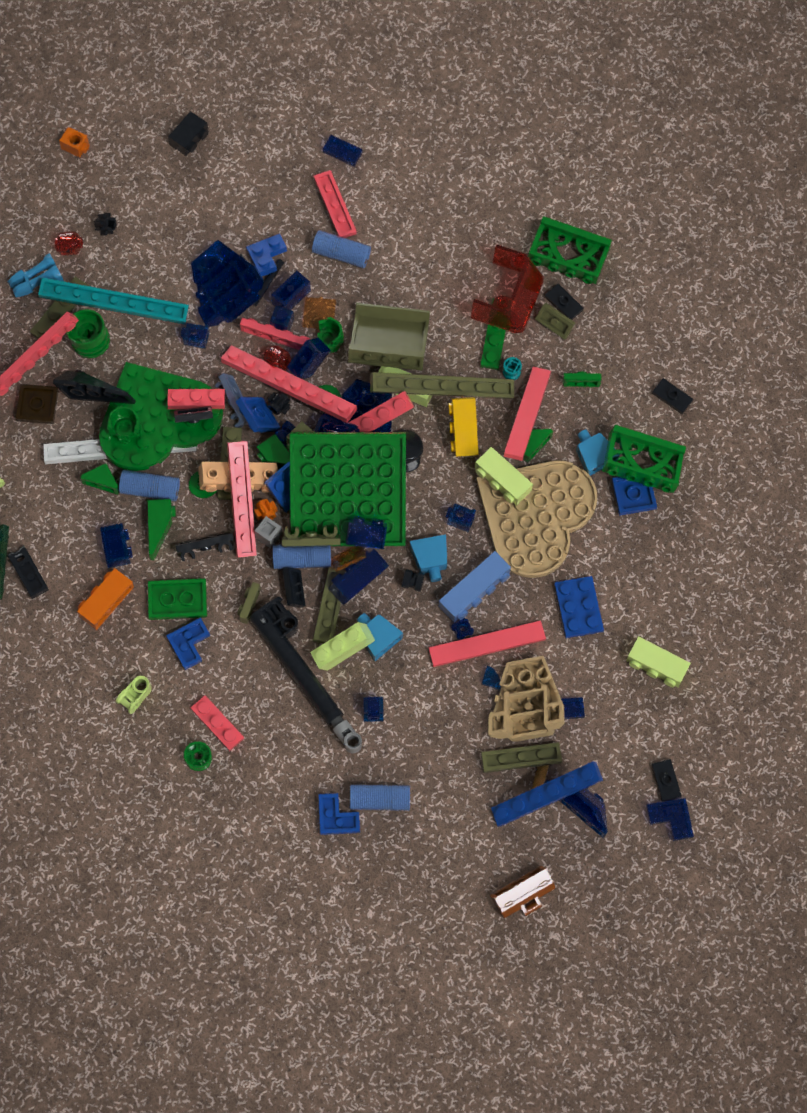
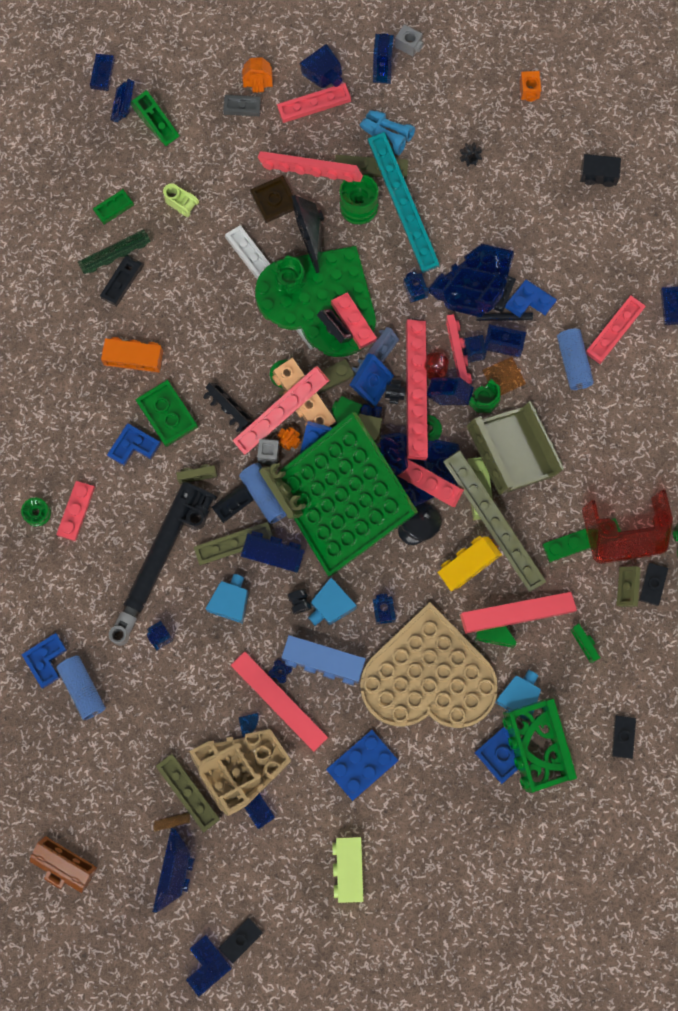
camera: 65 degrees right, 5 degrees up
(68, 243) = (433, 136): clear red head -> none
(101, 479) = (238, 288): green slope -> none
(115, 545) = (184, 335): clear blue brick -> none
(133, 694) = (59, 427): yellowish green piece -> none
(139, 484) = (248, 319): medium blue piece -> none
(159, 522) = (225, 358): green slope -> none
(342, 646) = (198, 575): yellowish green brick -> none
(349, 557) = (285, 534): clear orange piece -> none
(366, 533) = (314, 535): clear blue brick -> none
(503, 476) = (441, 625): yellowish green brick -> none
(510, 372) = (552, 574): teal wheel -> none
(547, 793) = (157, 838): blue plate -> none

